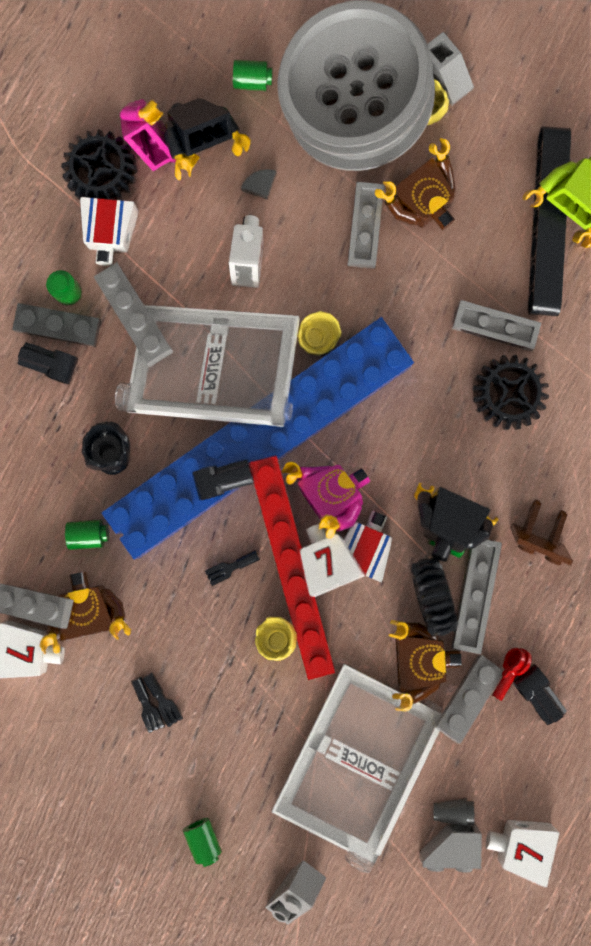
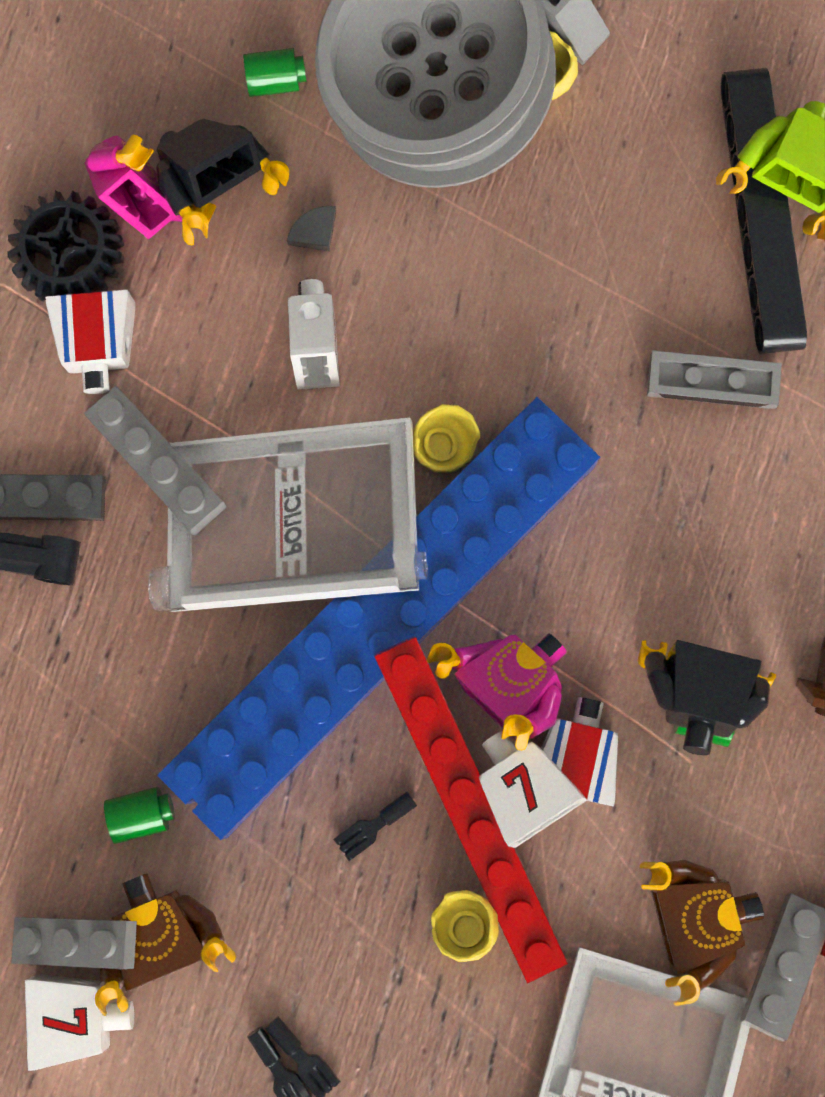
camera: 10 degrees left, 5 degrees down
(64, 287) = (41, 438): green brick -> none
(106, 448) = (148, 673): black hair -> none
(216, 480) = (329, 692): black piece -> none
(365, 226) = (486, 264): light grey plate -> none
(424, 192) = (566, 200): reddish brown torso -> none
(434, 596) = (700, 814): black gear -> none
(476, 597) = (766, 803): light grey plate -> none
(502, 385) = (770, 483): black gear -> none

